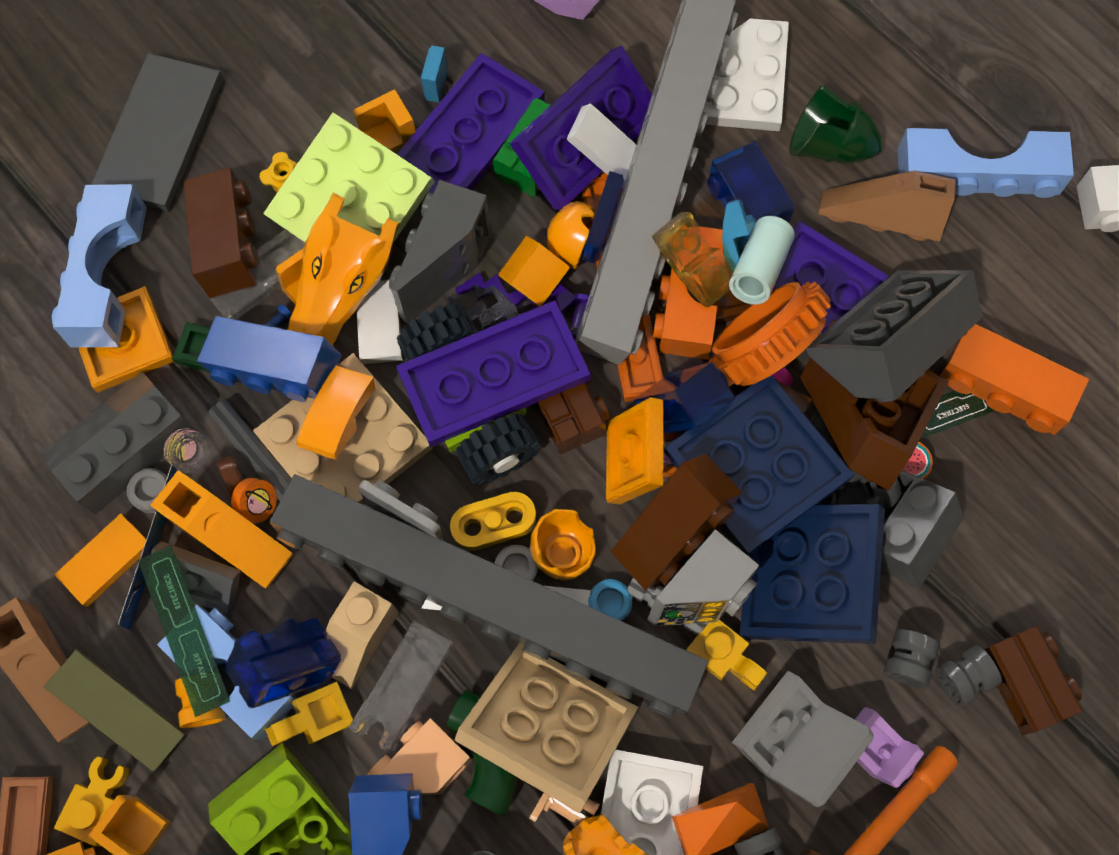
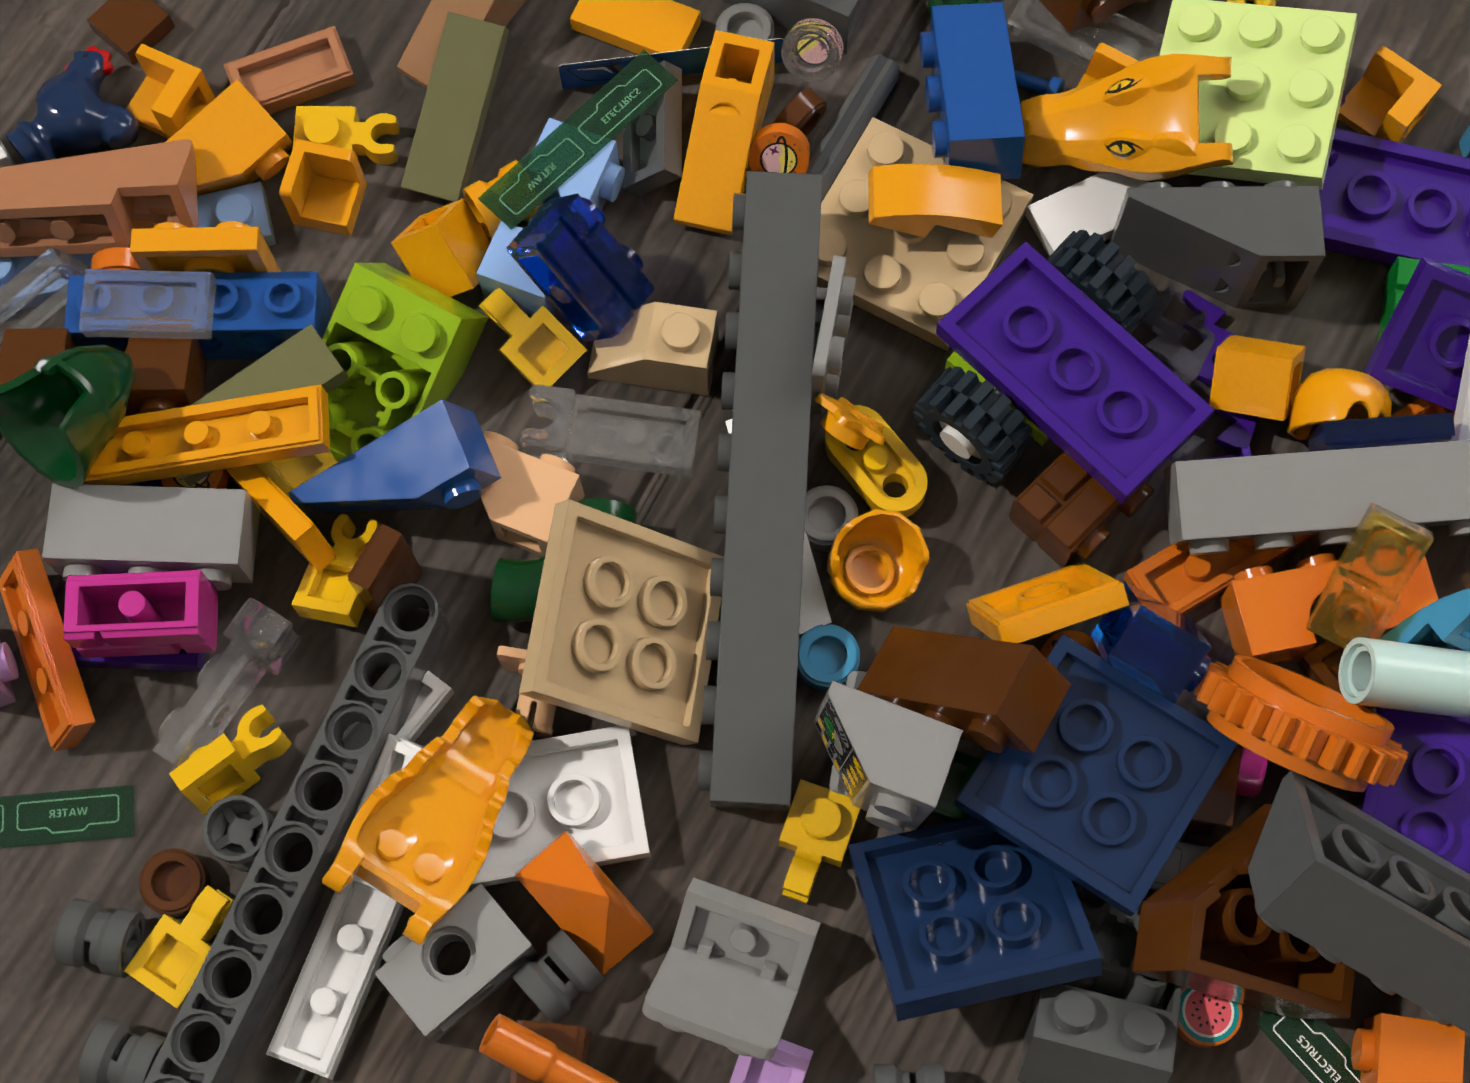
camera: 70 degrees right, 0 degrees up
(217, 755) = (444, 248): none -> light orange panel
(468, 525) = (849, 423): none -> light orange plate

